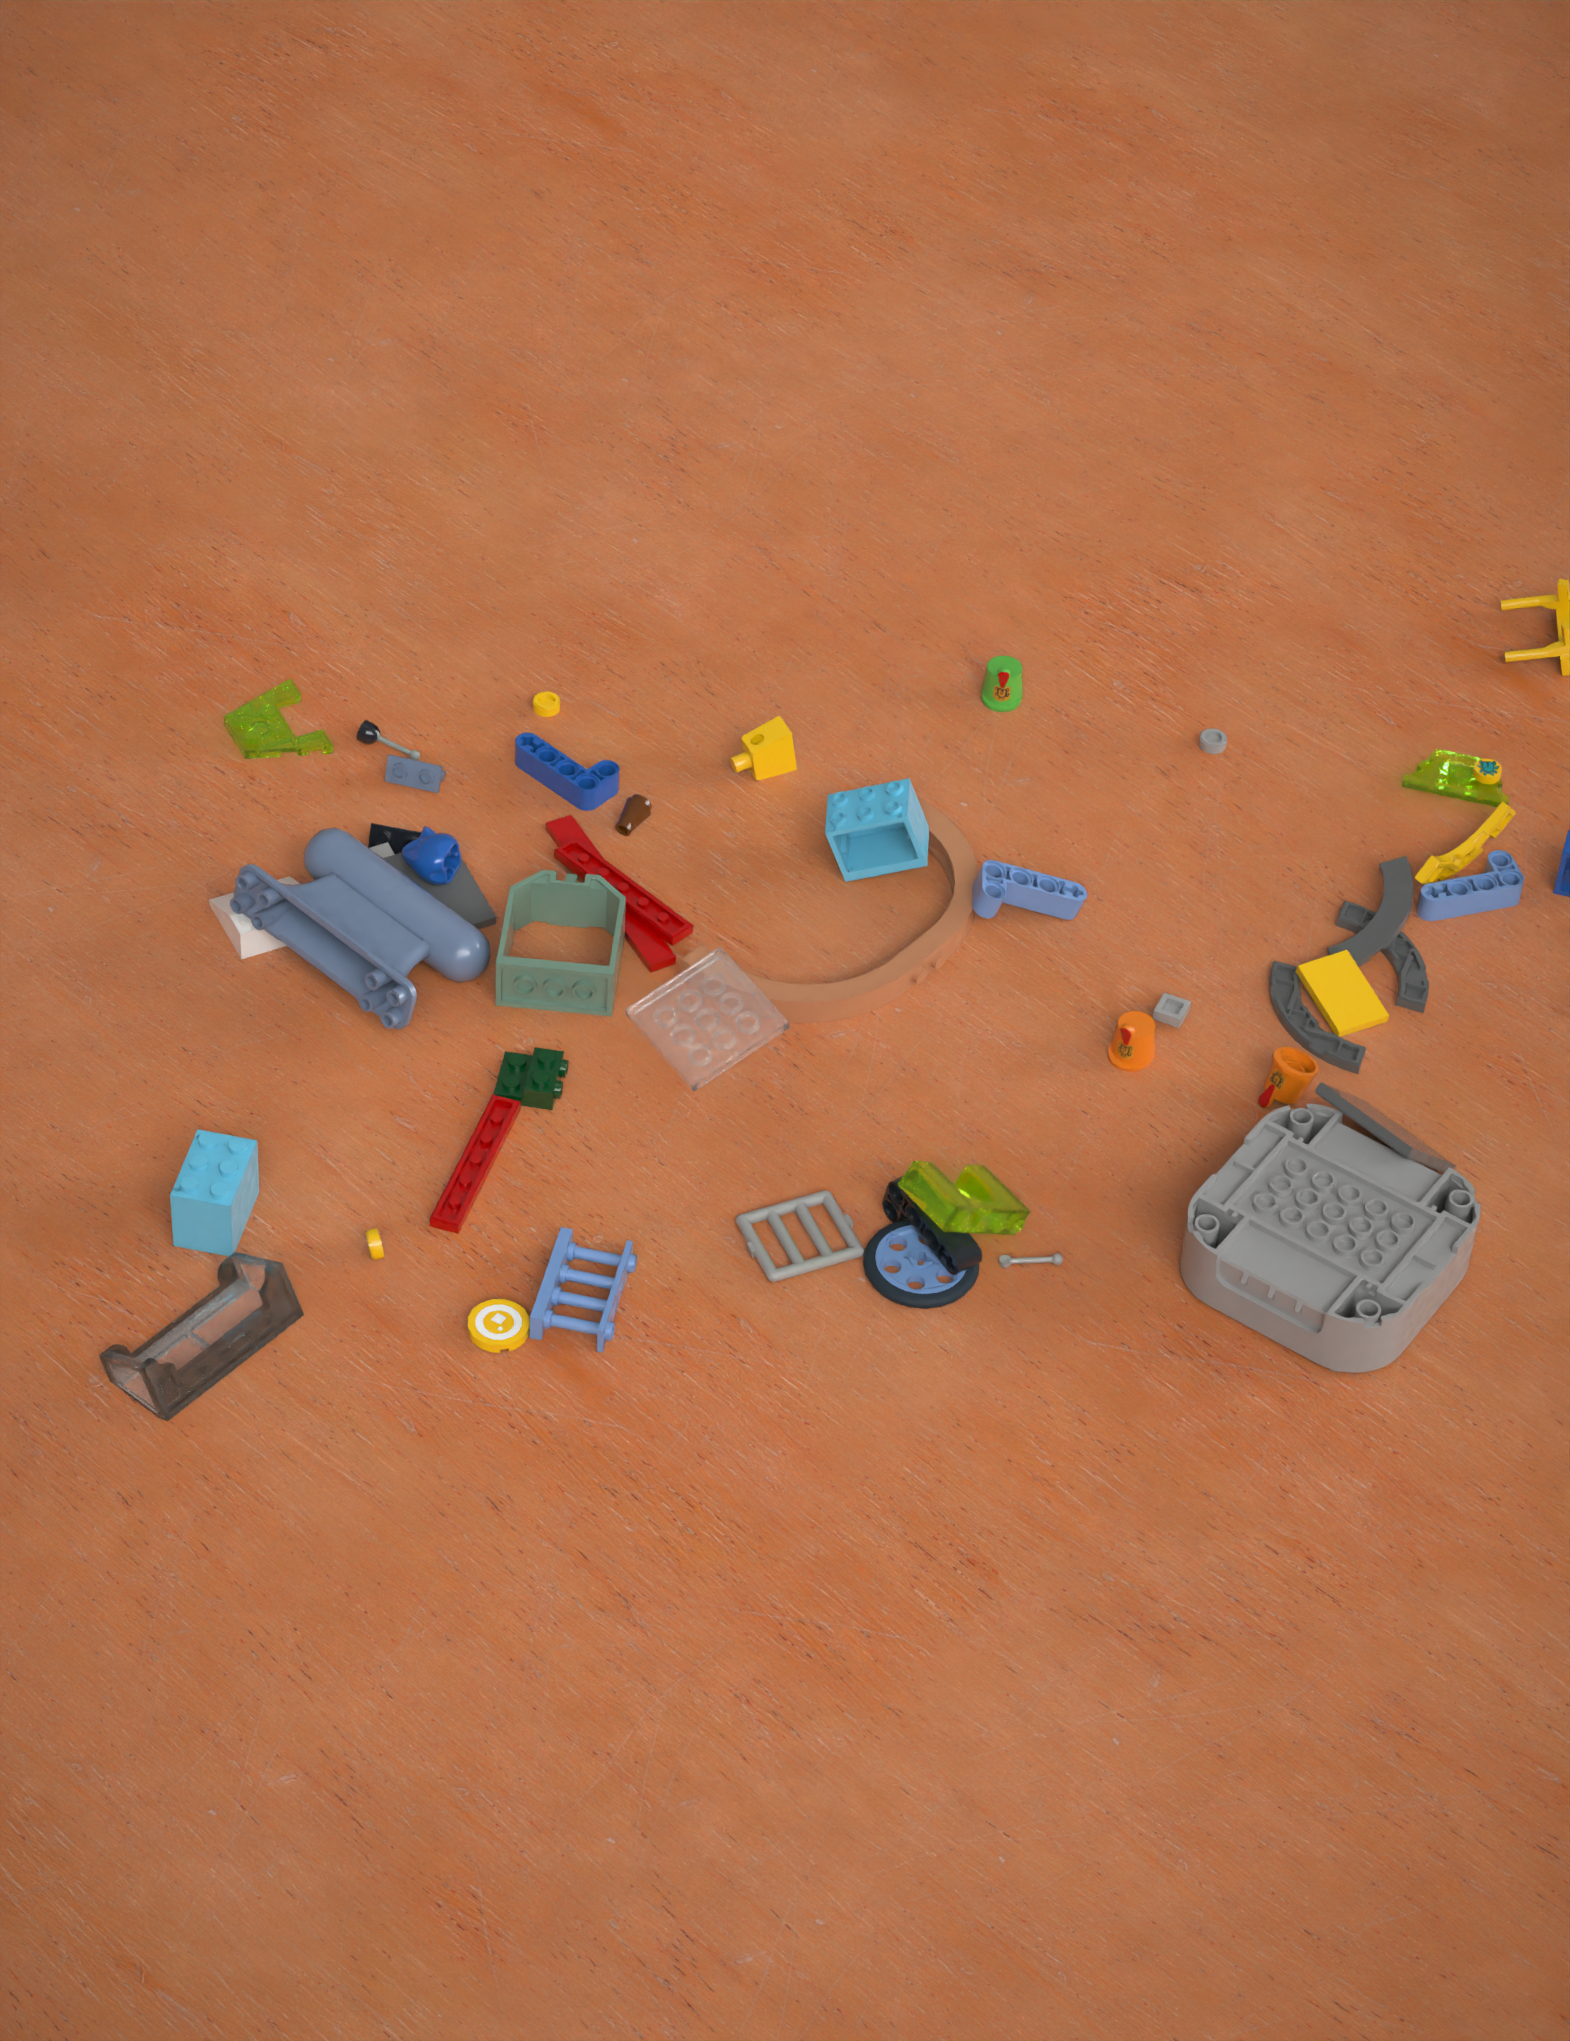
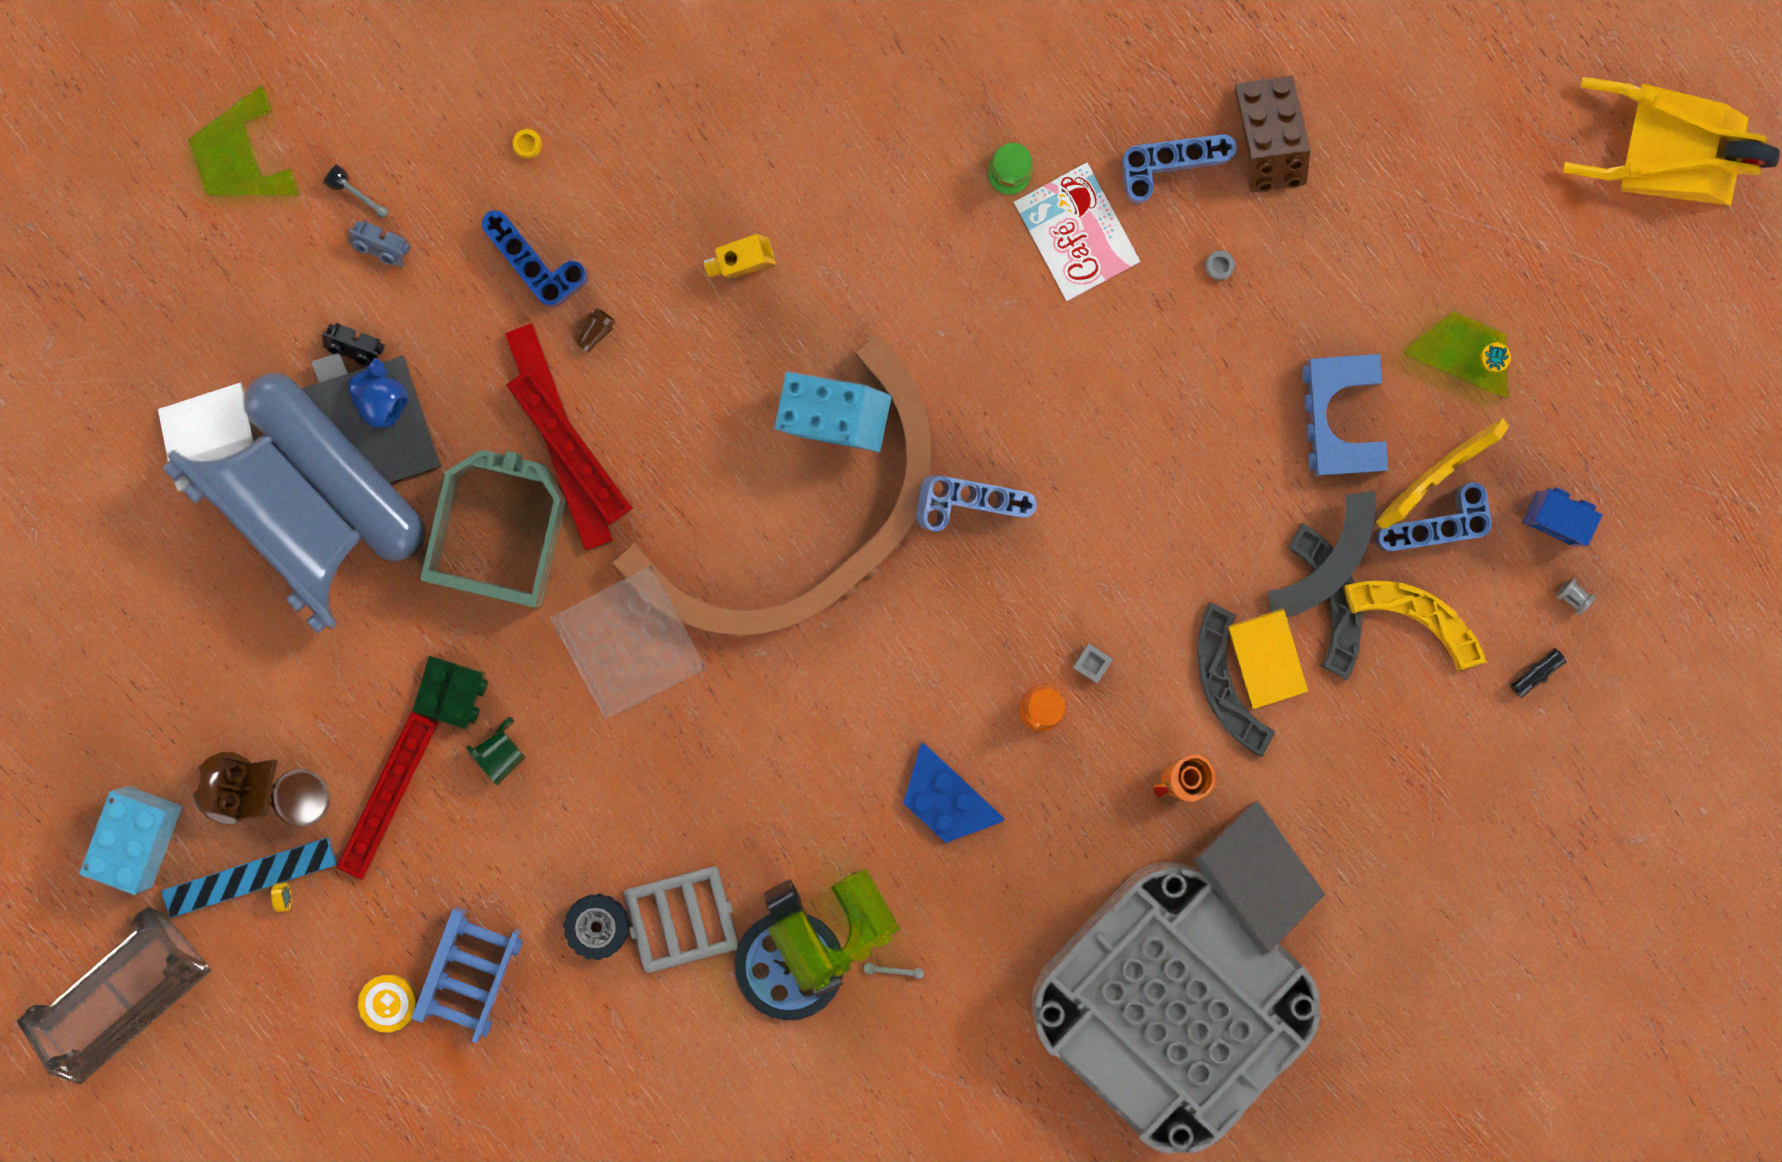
camera: 15 degrees right, 45 degrees up
(343, 1233) = (249, 877): none -> tile
(366, 1155) = (296, 796): none -> reddish brown piece
(585, 1114) = (498, 754): none -> dark green hat
(712, 1243) = (596, 943): none -> black wheel
(1053, 1124) = (945, 799): none -> blue wing
(1074, 731) = (1077, 231): none -> sticker
(1150, 670) = (1179, 160): none -> medium blue beam
(1243, 652) = (1273, 134): none -> reddish brown bracket
(1354, 848) = (1330, 453): none -> medium blue arch
(1479, 950) = (1423, 608): none -> yellow tile

